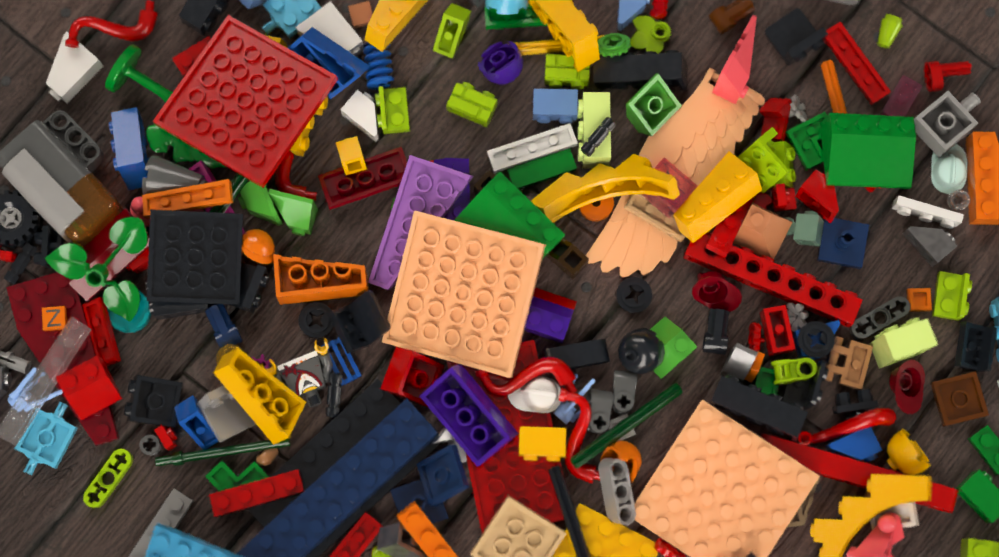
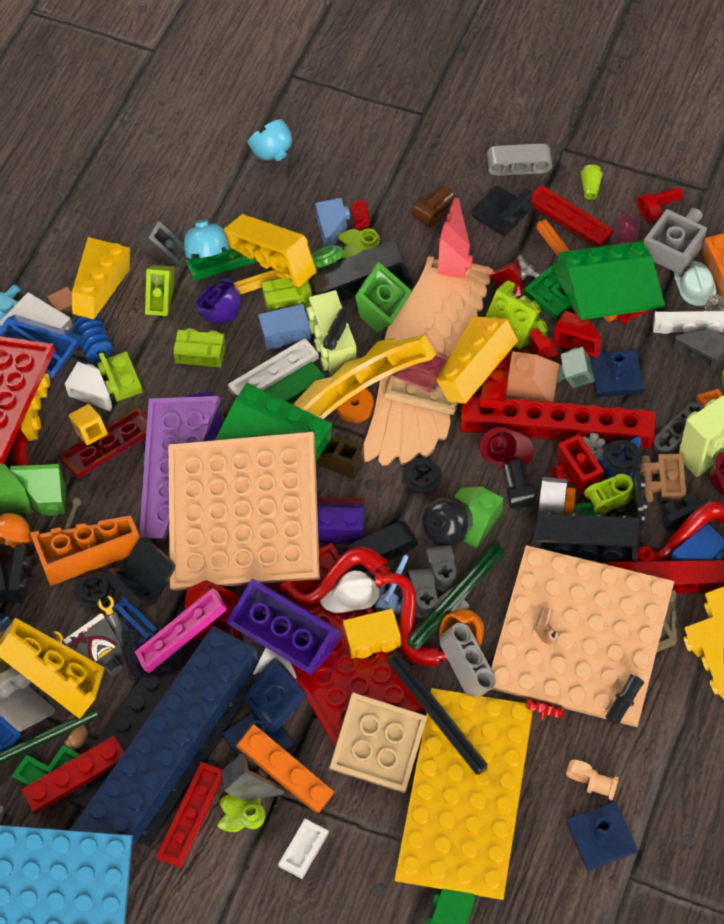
camera: 15 degrees left, 20 degrees down
(322, 228) = (76, 502): none -> dark tan hinge
(378, 393) = (181, 630): none -> dark pink plate
(691, 484) = (543, 627): none -> medium nougat arm

